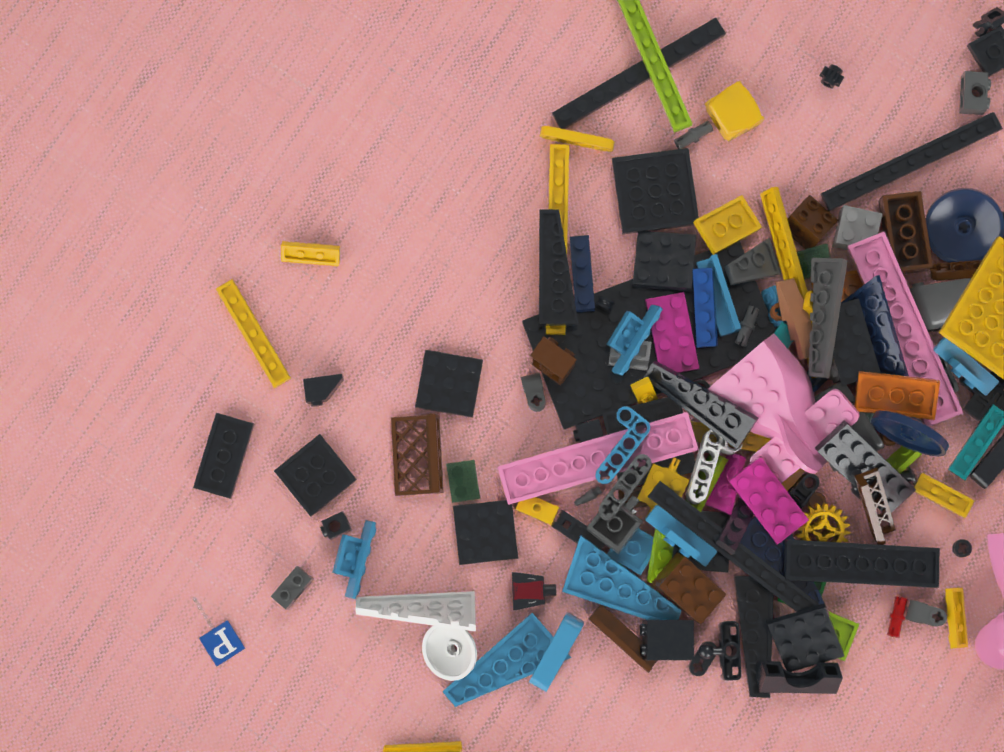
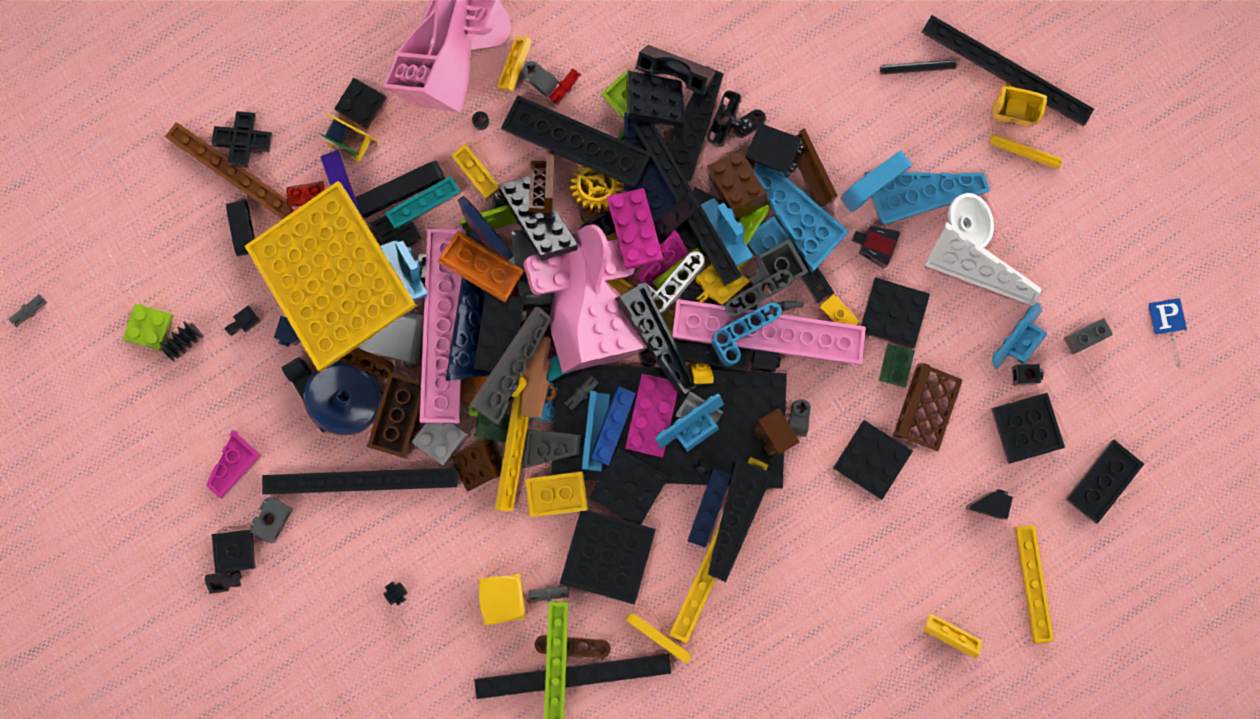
camera: 160 degrees left, 0 degrees up
(649, 95) = (572, 649): none -> reddish brown beam

